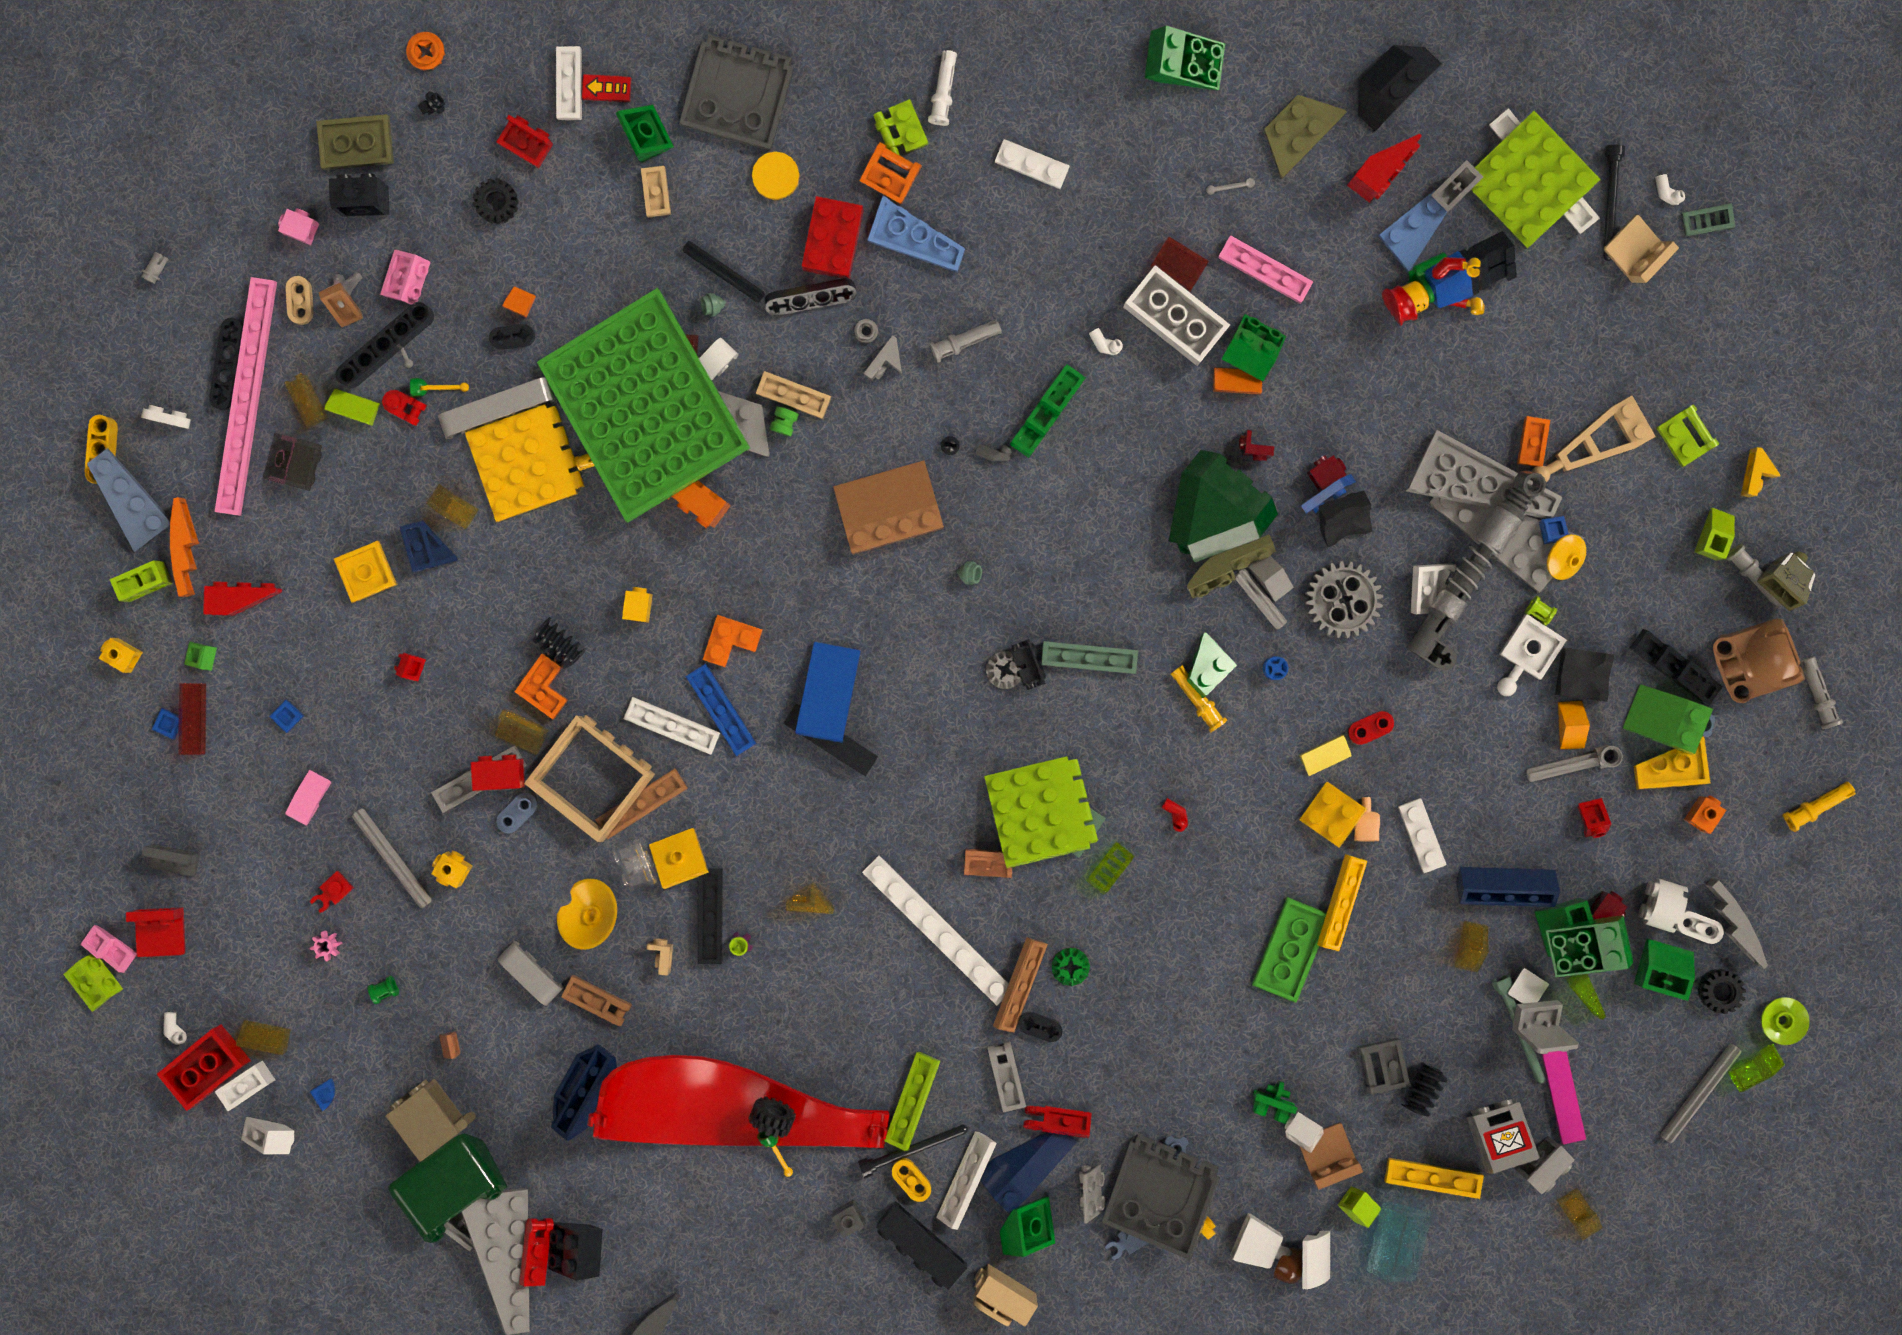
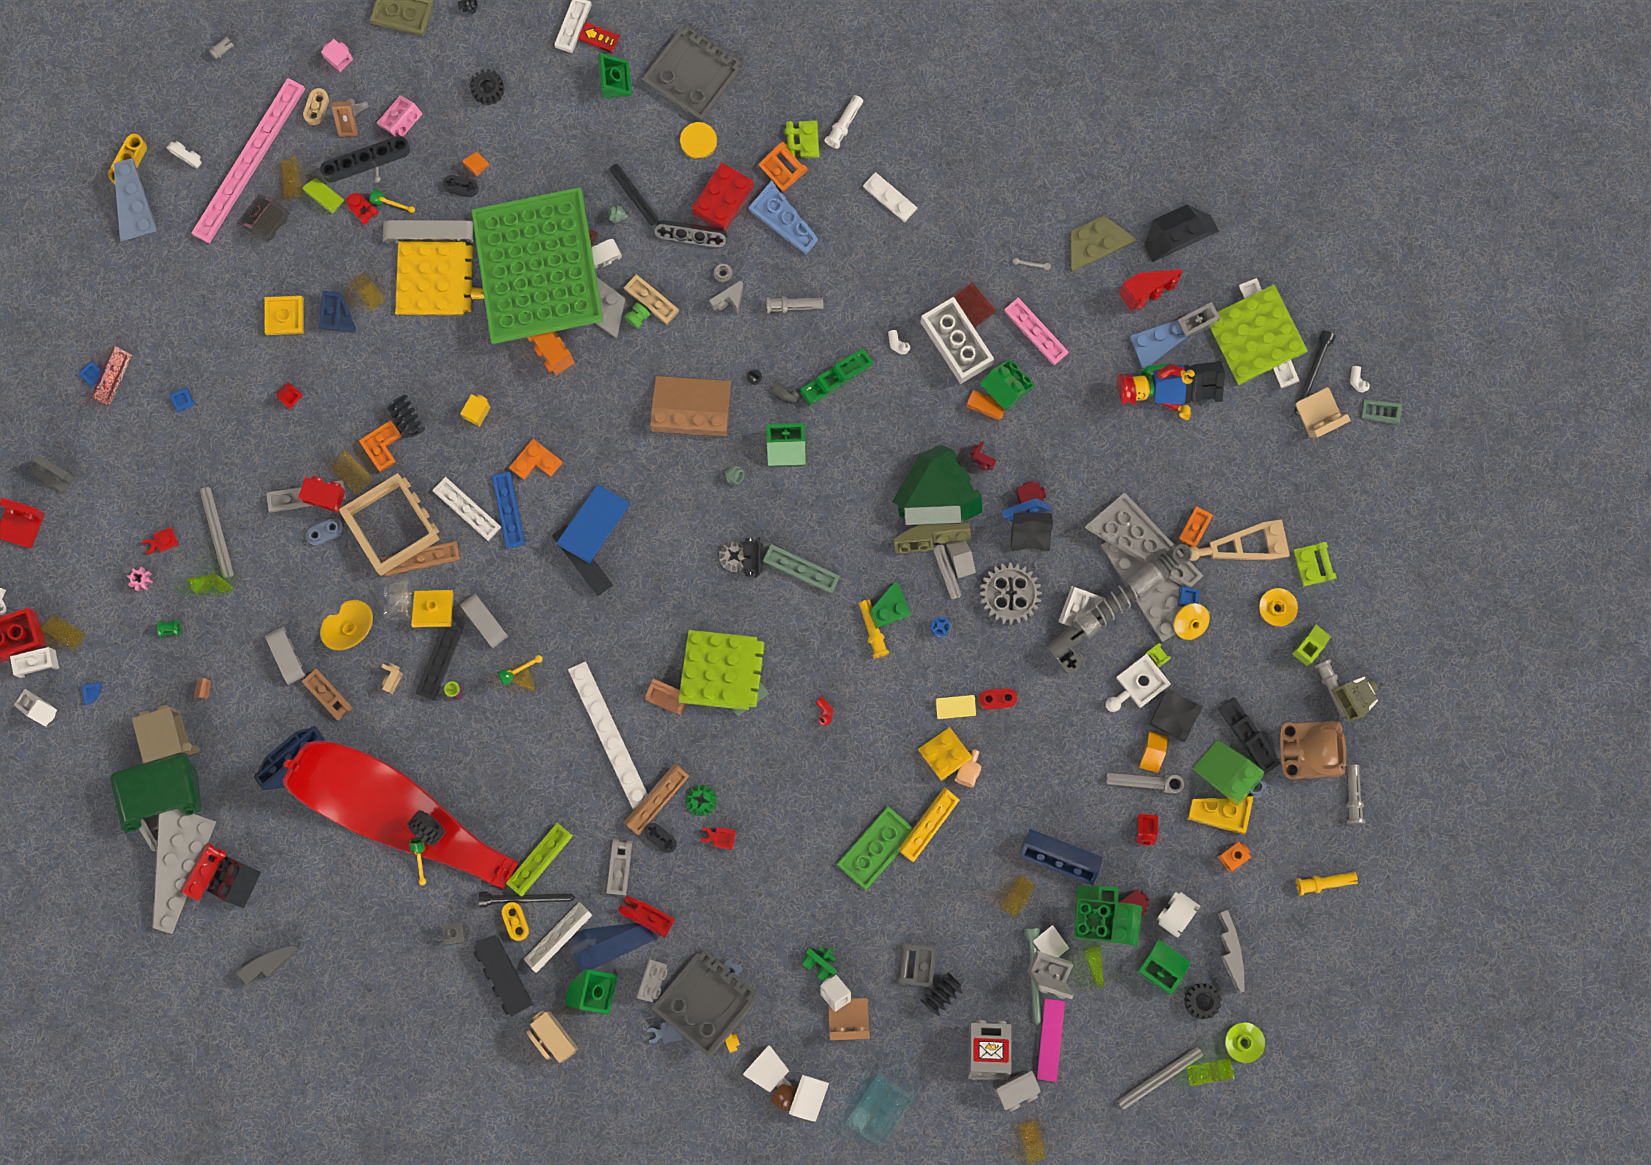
camera: 20 degrees right, 10 degrees down
(120, 655) = (78, 311): yellow brick -> none
(141, 581) = (116, 263): lime brick -> none
(181, 539) = (159, 244): orange slope -> none
(200, 656) = (136, 333): bright green slope -> none
(222, 363) = (242, 132): black beam -> none
(233, 600) = (175, 300): red slope -> none
(308, 797) = (170, 466): bright pink slope -> none
(358, 195) = (389, 48): black hinge -> none
(401, 926) = (205, 583): none -> clear neon green slope
(458, 866) = (257, 554): yellow brick -> none
(524, 141) = (525, 53): red bracket -> none
(656, 191) = (606, 121): tan plate -> none
(742, 851) = (483, 620): none -> light grey beam
(796, 908) = (506, 675): none -> hinge
(1018, 516) = (786, 444): none -> slope
(1112, 1002) = (723, 837): none -> red plate
(1116, 873) = (755, 744): clear neon green slope -> none
(1184, 59) = (1029, 161): green slope -> none
(1359, 1206) = (858, 1070): lime panel -> none
(1422, 835) = (1009, 795): white plate -> none
(1434, 1178) = (925, 1069): yellow plate -> none
(1674, 503) = (1286, 602): none -> yellow dish
(1698, 926) = (1201, 943): white plate -> none
(1757, 466) = (1361, 605): yellow slope -> none

